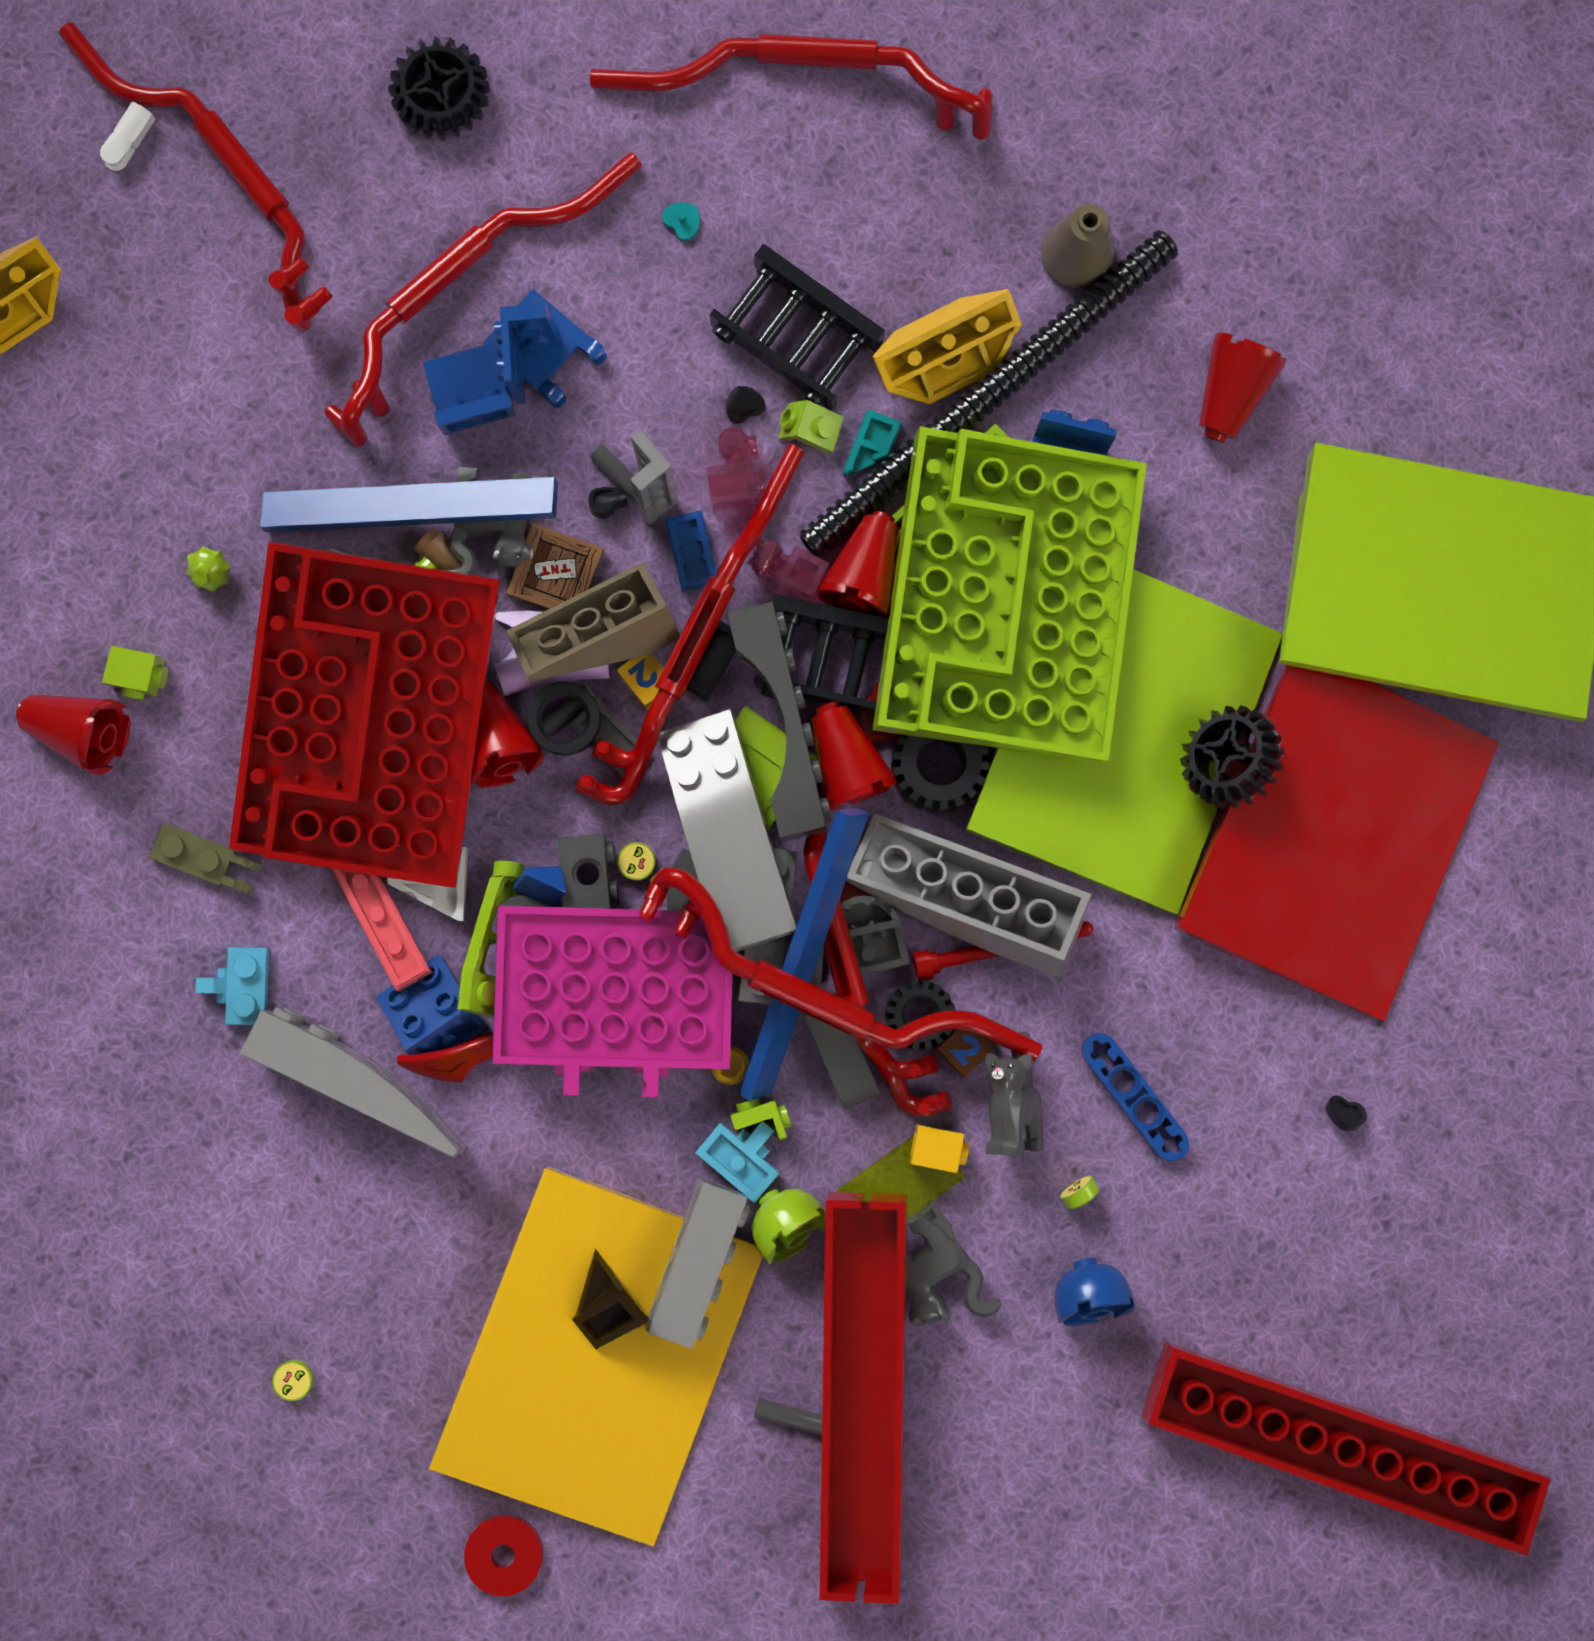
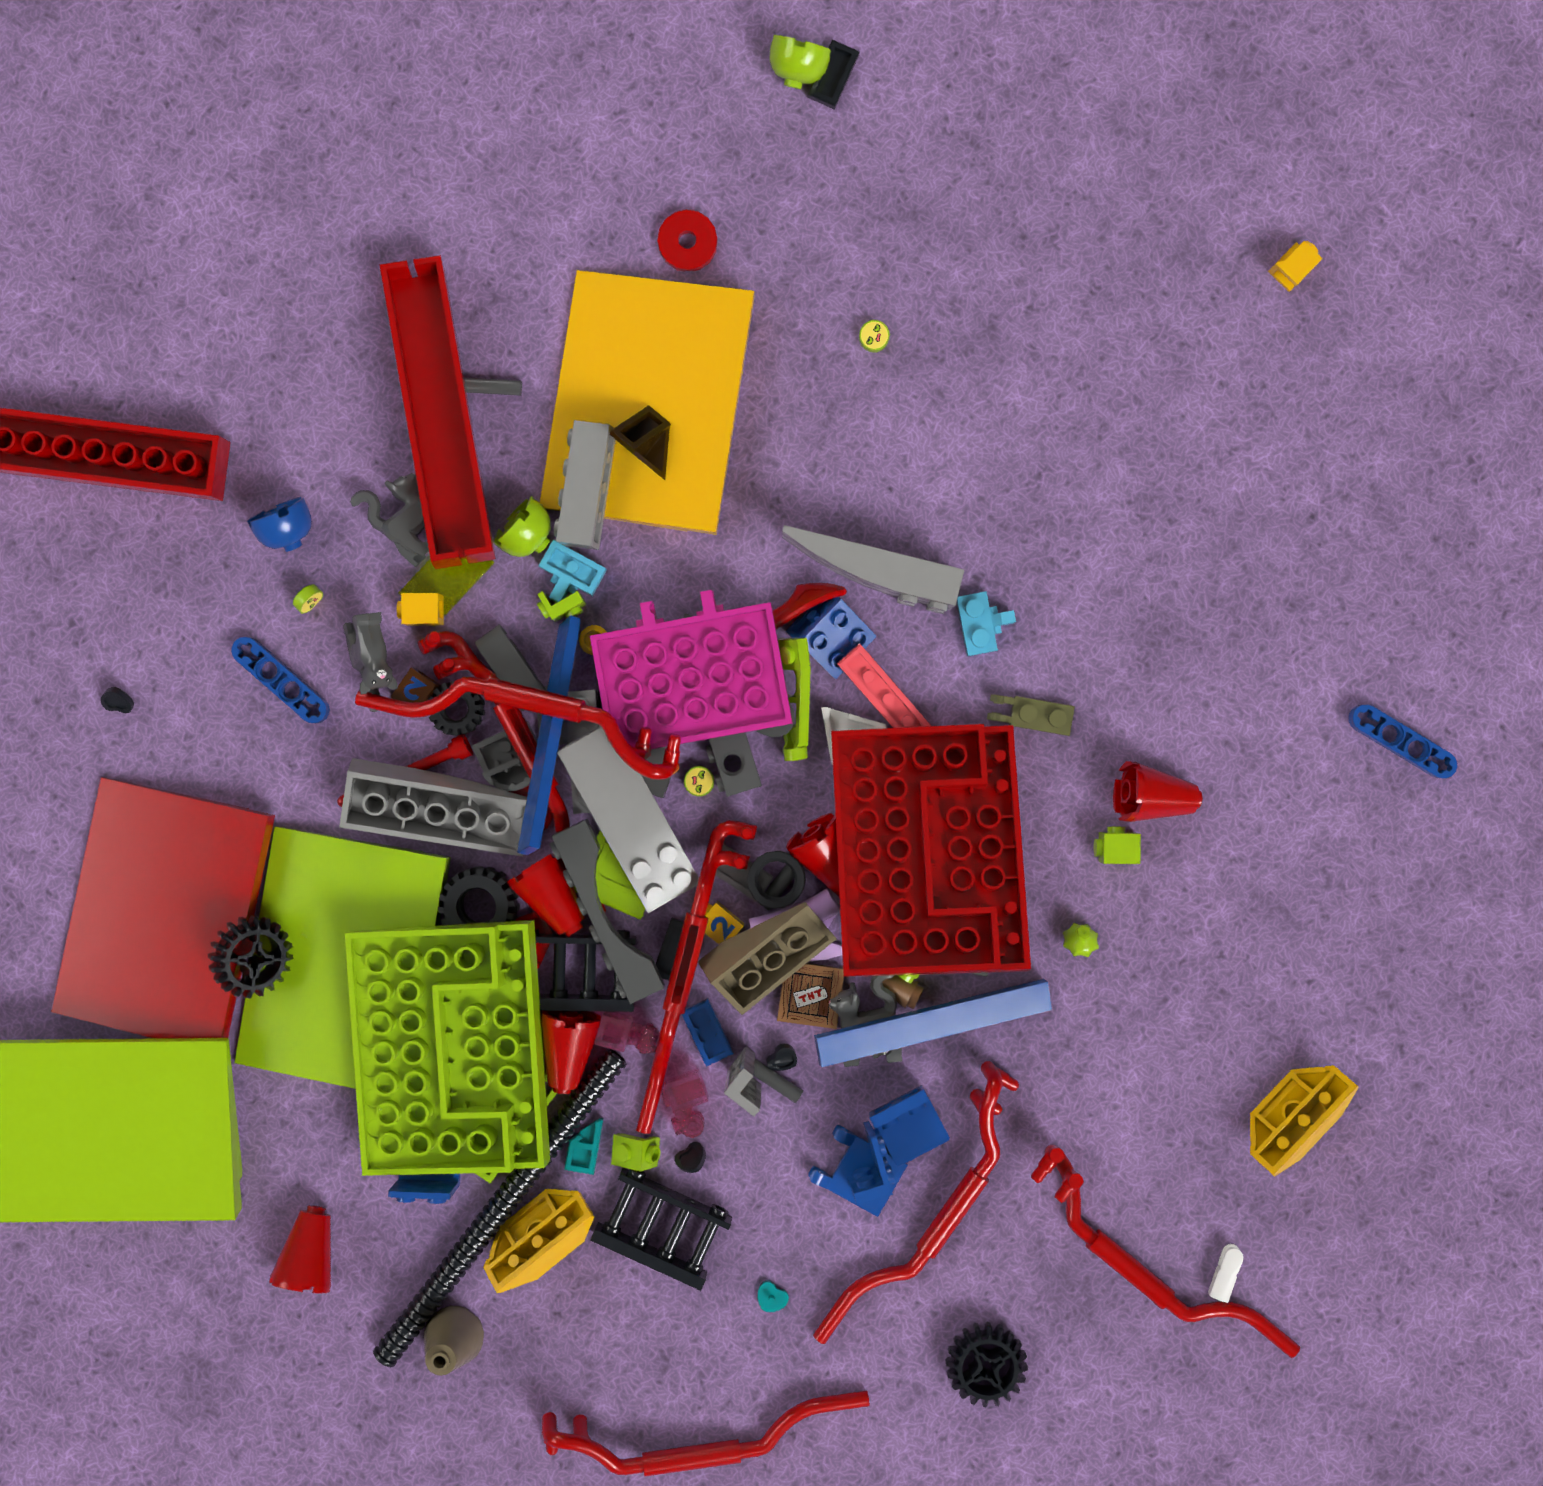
camera: 170 degrees right, 5 degrees up
(542, 884) = (764, 747): blue slope -> none

